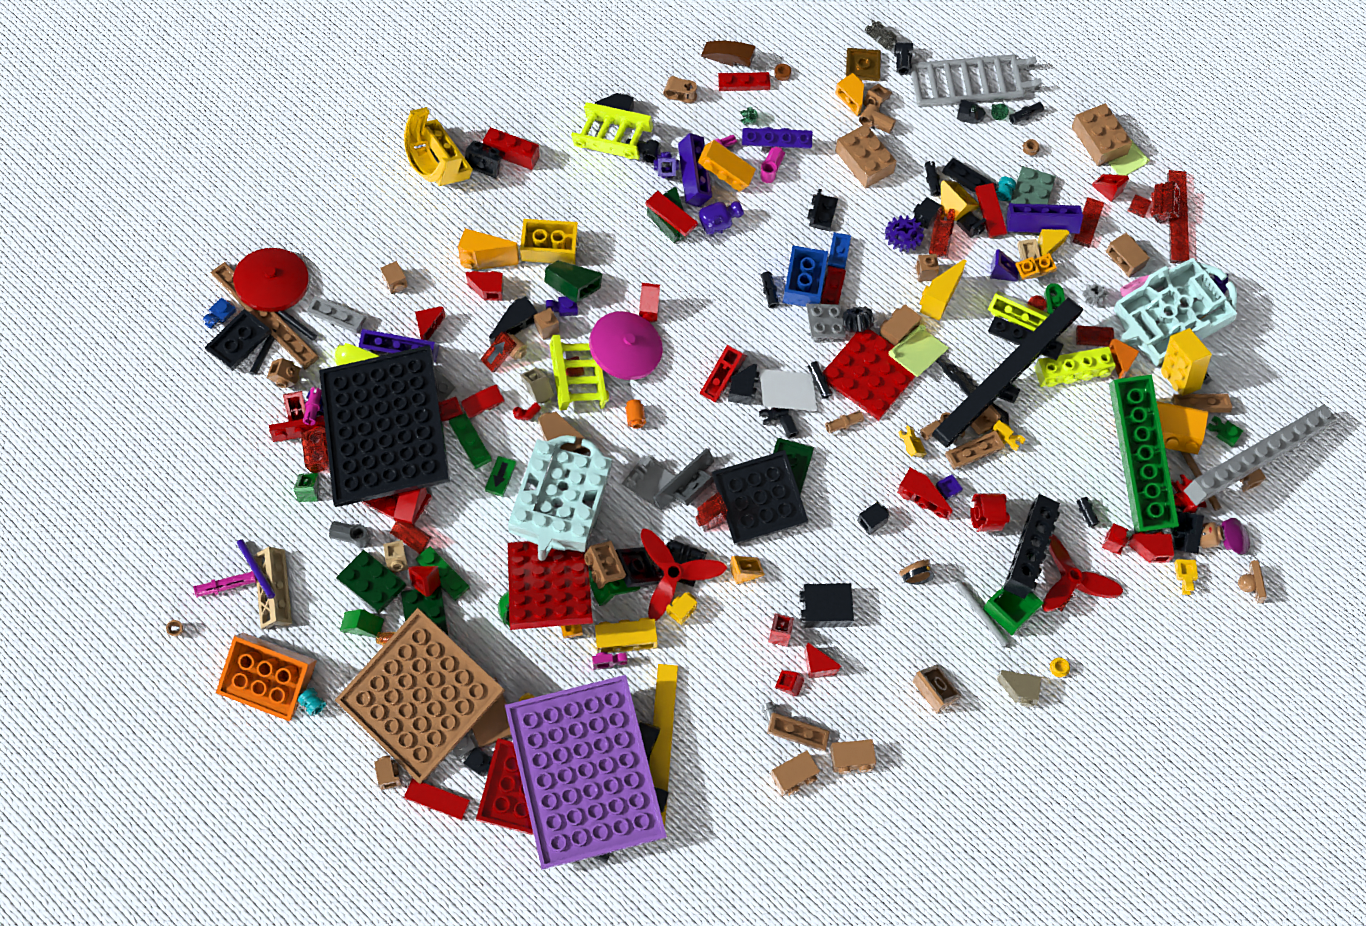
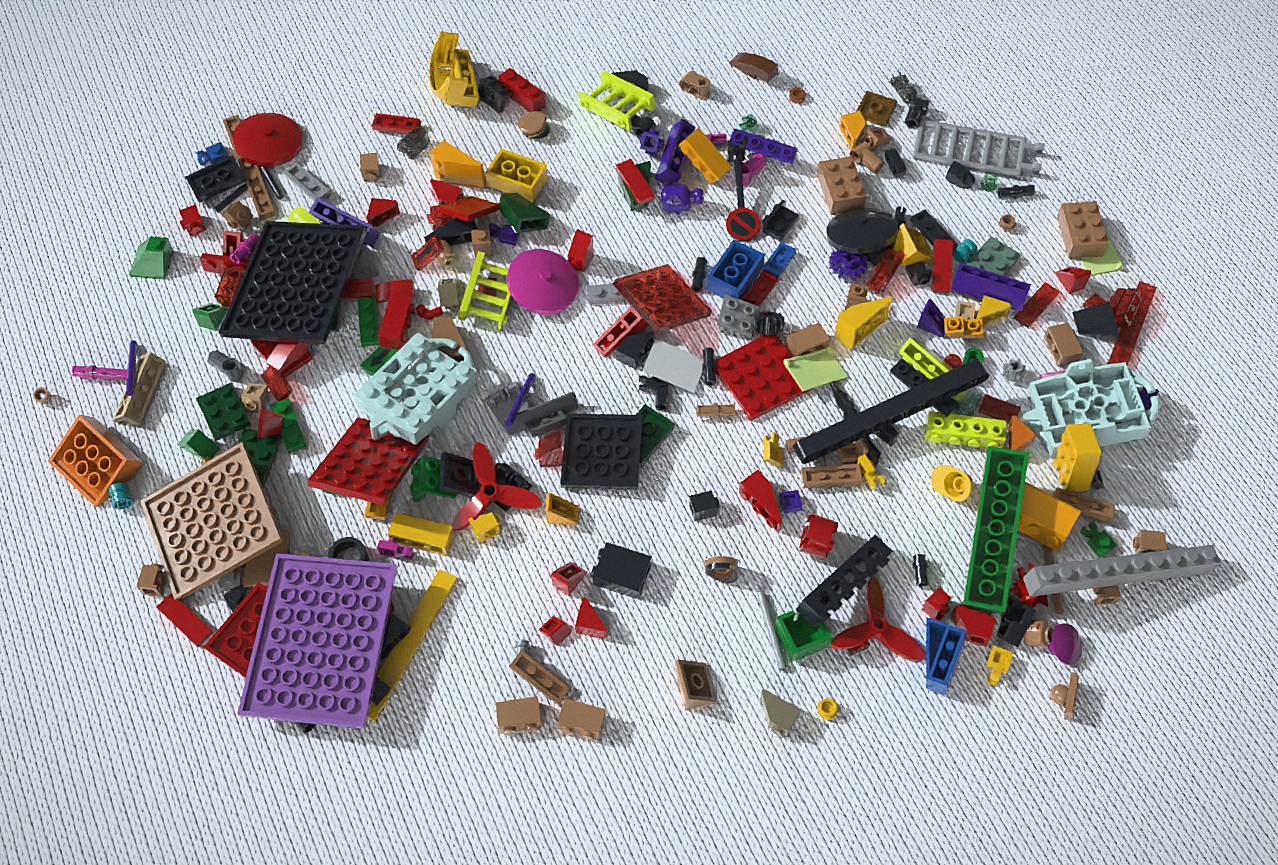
camera: 25 degrees right, 5 degrees down
(213, 447) = (152, 258): none -> slope
(236, 393) = (191, 220): none -> red brick
(398, 222) = (395, 123): none -> red plate
(424, 240) = (414, 142): none -> clear smoke piece
(492, 308) = (436, 218): none -> clear red brick
(502, 432) = (396, 321): none -> red brick
(520, 292) = (469, 208): none -> red tile
(539, 181) = (534, 125): none -> medium nougat piece
(564, 667) = (348, 542): none -> black tyre
(604, 563) = (427, 460): medium nougat bracket -> none
(635, 414) = (524, 343): orange brick -> none
(659, 472) = (520, 399): none -> dark purple bar
(694, 334) = (603, 294): none -> light grey hinge
(744, 81) = (757, 93): red plate -> none
(749, 326) = (662, 298): none -> clear red plate
(788, 223) = (742, 222): none -> black piece
(905, 116) = (895, 162): none -> black beam
(905, 198) = (862, 230): none -> black dish
(1069, 341) = (968, 406): none -> clear light blue cone
(1084, 421) = (952, 482): none -> yellow piece
(1138, 583) = (943, 653): none -> blue wedge
(1148, 222) = (1096, 320): none -> black slope
(1270, 420) = (1149, 541): none -> medium nougat brick

